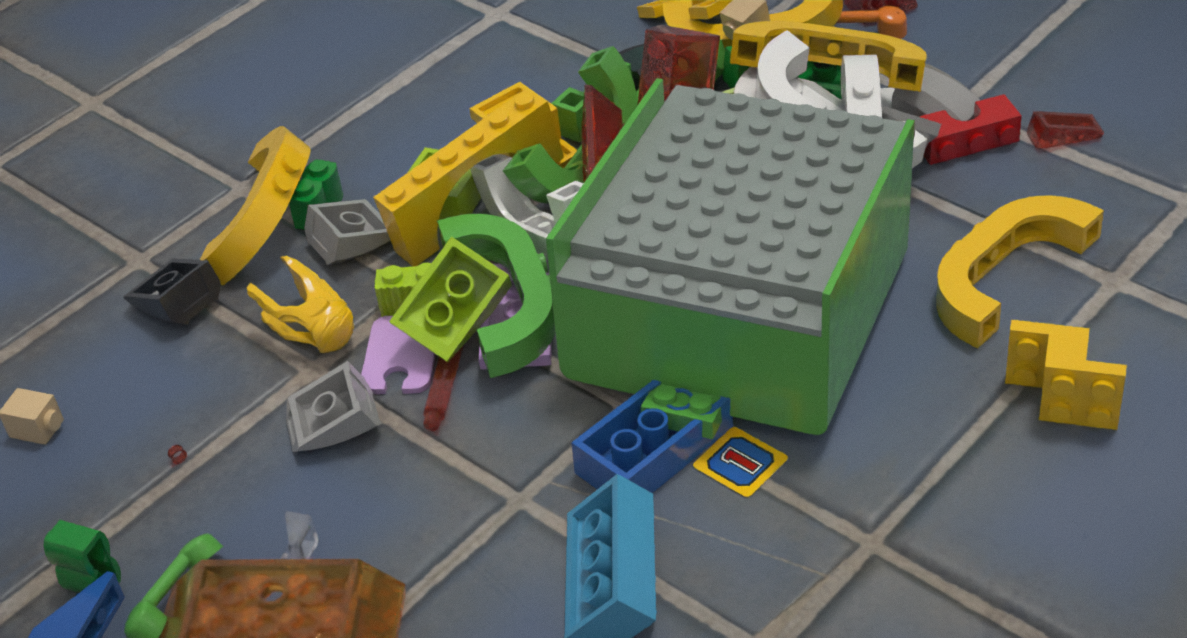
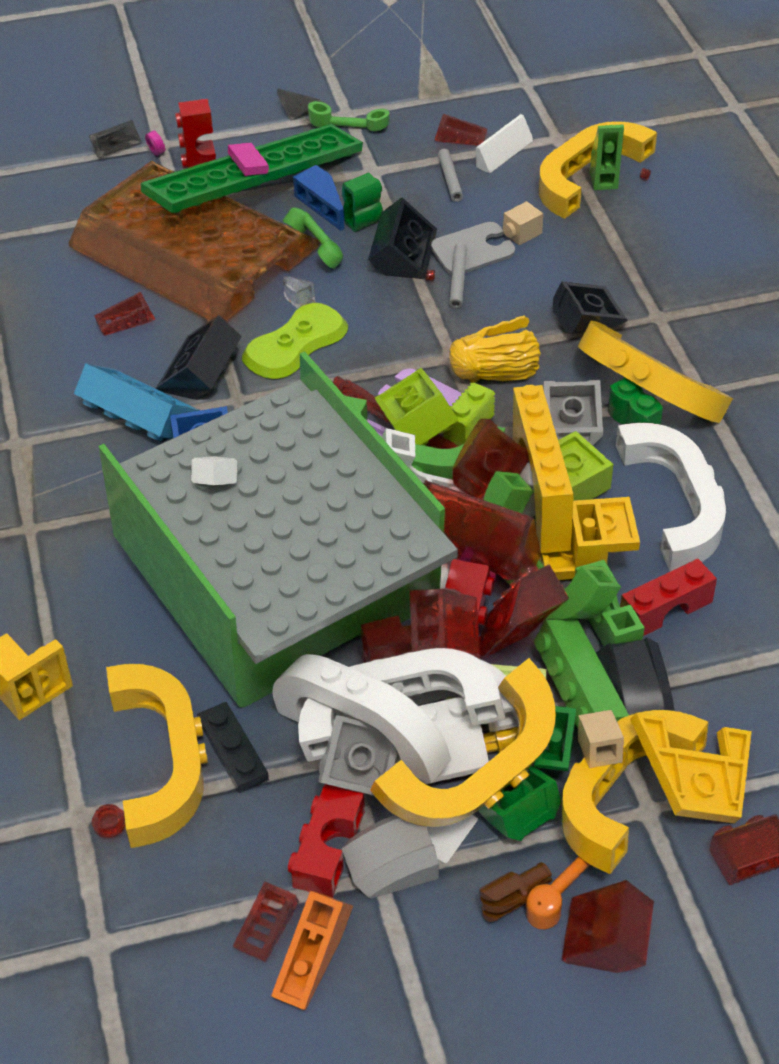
camera: 120 degrees right, 5 degrees up
(107, 449) = (478, 250): none -> light grey piece
(136, 501) = (402, 242): none -> black slope
(168, 423) = (458, 275): none -> light grey piece
(331, 410) = (385, 340): light grey slope -> none
(396, 120) = (683, 457): none -> white arch
(408, 510) = (307, 330): none -> lime plate
(496, 554) = (201, 360): none -> black slope
(498, 197) = (484, 454): none -> clear red slope
(539, 73) = (687, 586): none -> red arch
(762, 220) = (214, 470): none -> white slope
(909, 31) = (511, 891): none -> reddish brown arm
(950, 224) = (233, 747): none -> black plate
(1052, 90) = (311, 949): none -> orange slope
(1100, 250) = (108, 821): none -> clear red plate

